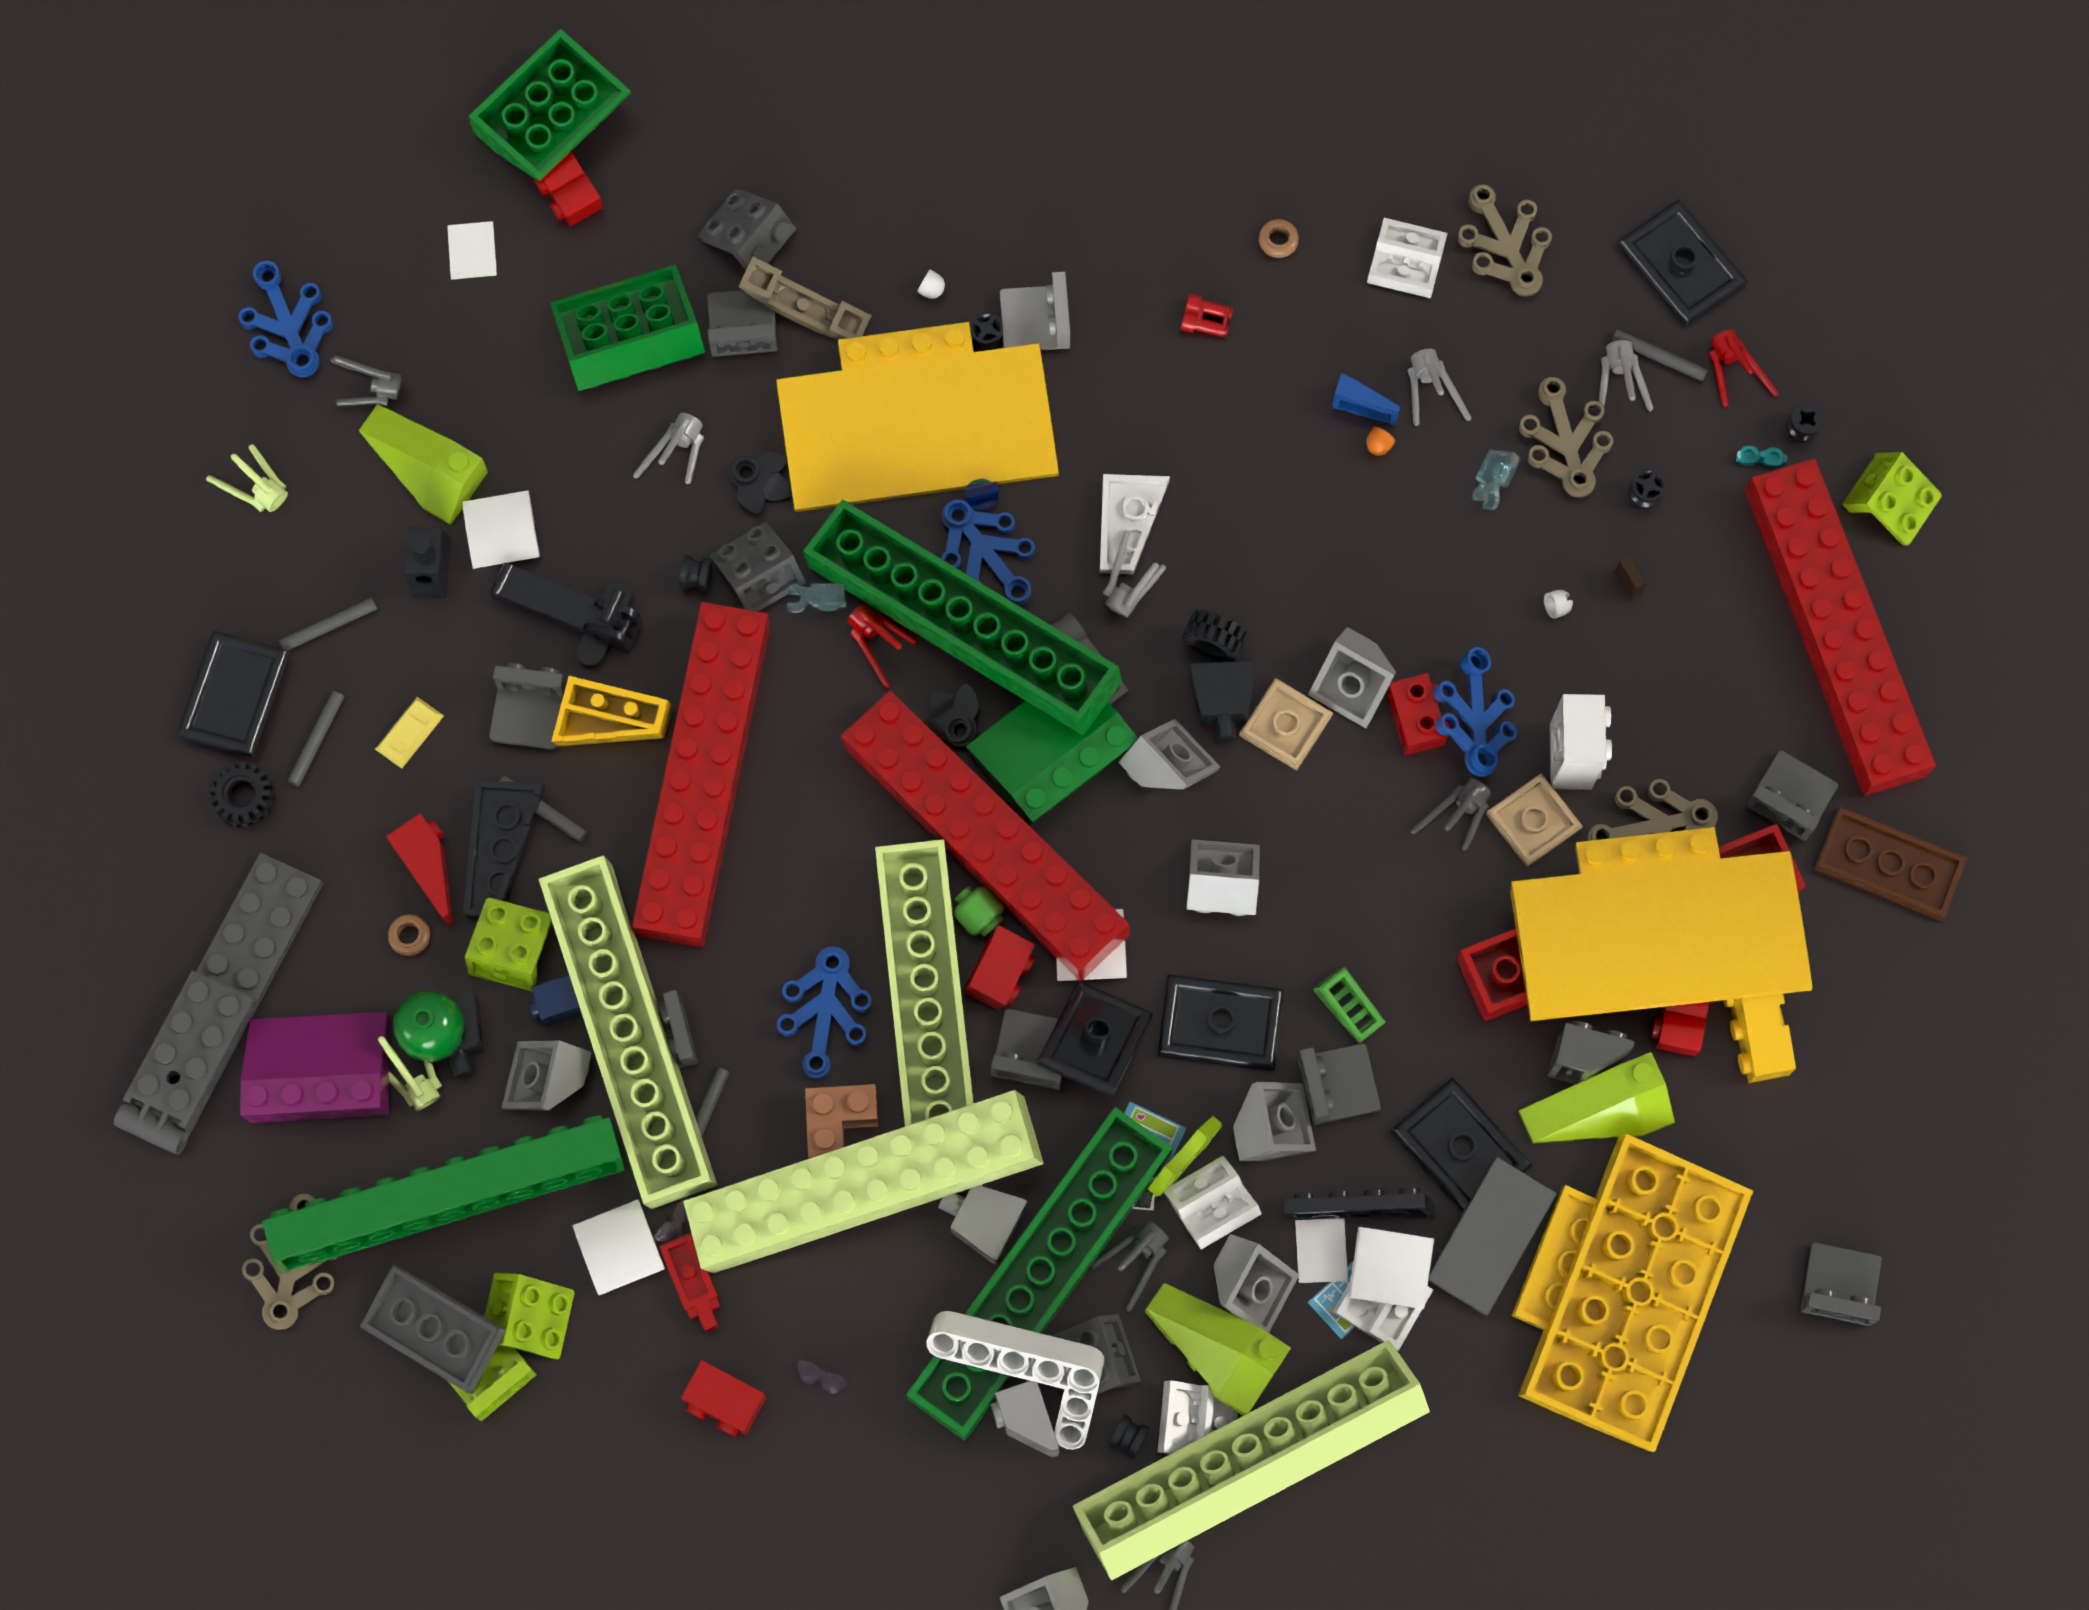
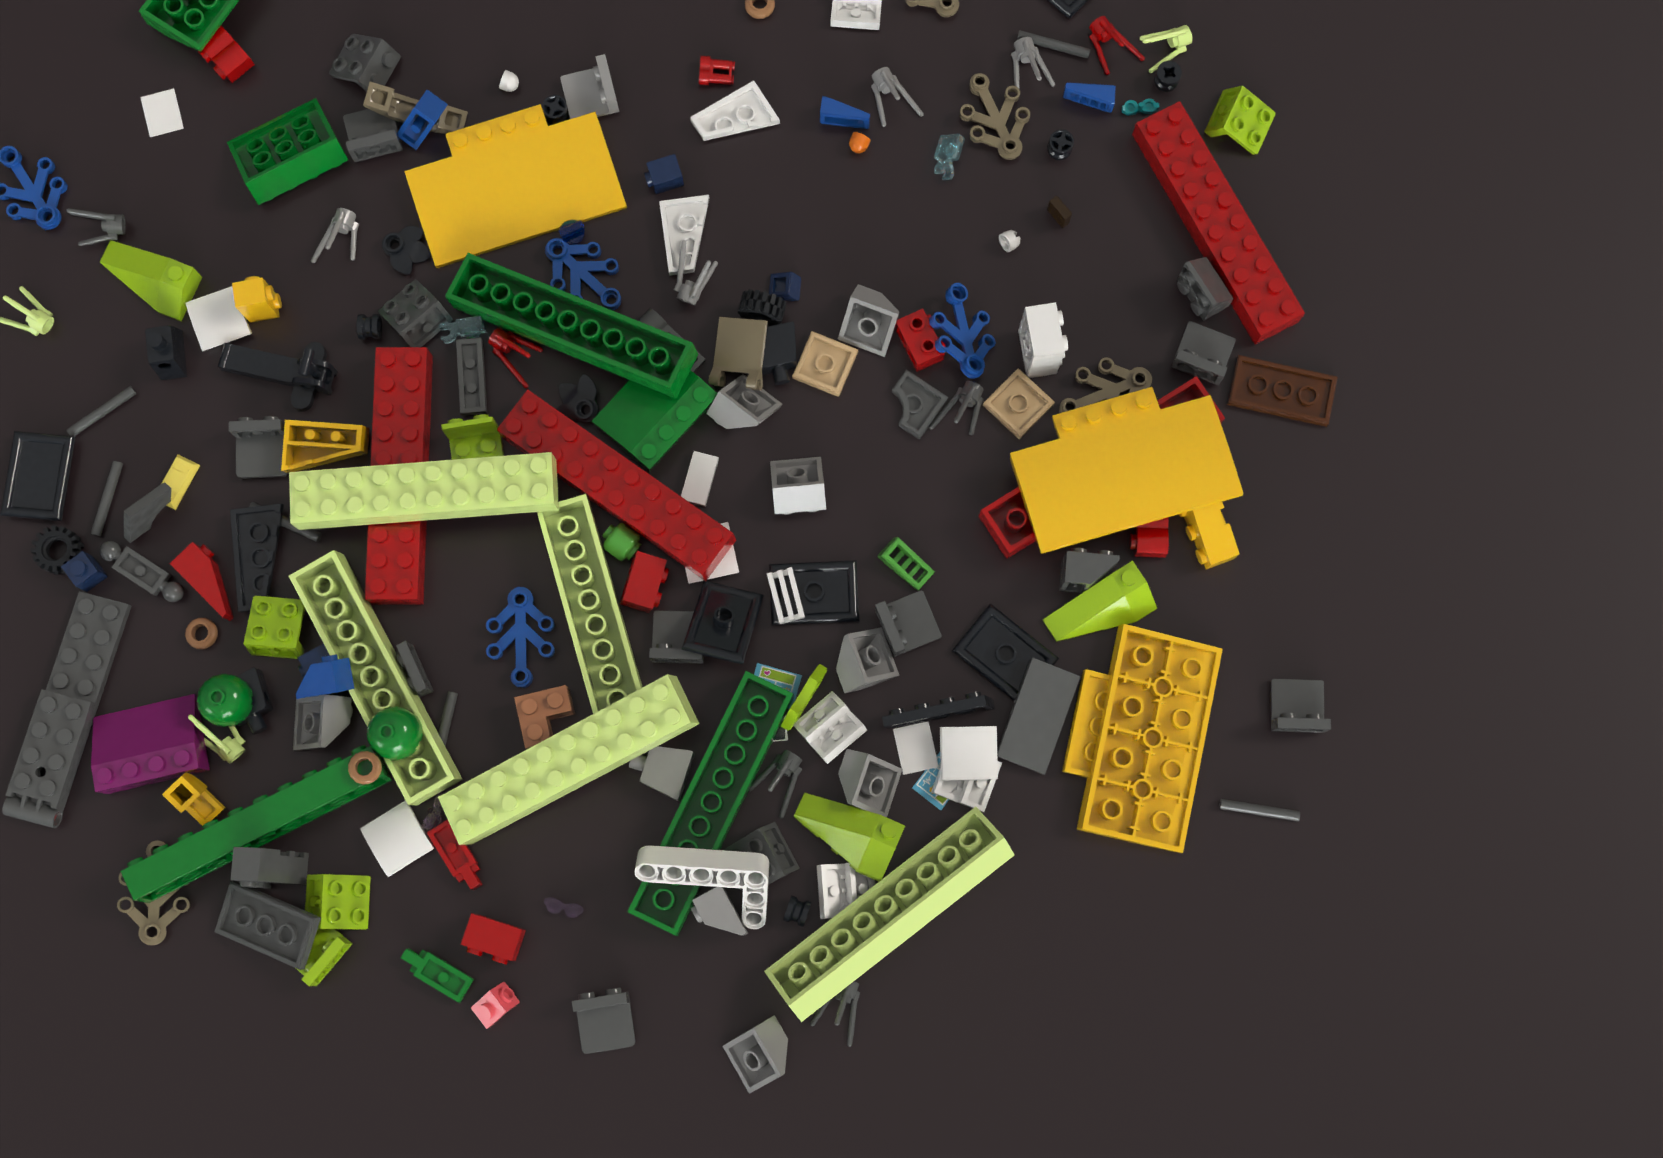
camera: 10 degrees left, 5 degrees up
(272, 828) = (84, 571): none -> dark blue brick
(345, 840) = (141, 571): none -> dark grey plate
(364, 763) = (142, 513): none -> dark grey tile
(364, 1145) = (191, 795): none -> yellow brick
(444, 1251) = (268, 866): none -> dark grey wedge
(557, 513) = (256, 299): none -> yellow brick
(566, 1019) = (326, 677): none -> blue slope
(598, 1158) = (353, 767): none -> medium nougat piece
(643, 1106) = (394, 733): none -> green cylinder
(643, 1434) = (438, 974): none -> green hinge
(709, 1487) = (495, 1004): none -> coral bracket
(735, 799) = (423, 491): none -> yellowish green brick
(807, 745) = (473, 437): none -> lime bracket
(811, 316) = (421, 119): none -> blue slope
(817, 661) = (471, 376): none -> dark grey plate
(850, 1534) = (604, 1021): none -> dark grey bracket
(1095, 845) = (699, 478): none -> white tile
(1115, 440) = (664, 174): none -> dark blue brick
(1176, 687) = (739, 350): none -> dark tan flag
(1181, 989) = (780, 574): none -> white tile
(1222, 376) = (735, 113): none -> white wing
(1251, 612) = (785, 285): none -> dark blue slope
(1402, 797) = (919, 403): none -> dark grey tile
(1701, 431) = (1091, 95): none -> blue slope
(1767, 1413) = (1261, 810): none -> dark grey bar
(1806, 710) = (1203, 288): none -> dark grey slope
(1824, 373) = (1176, 37): none -> yellowish green plant

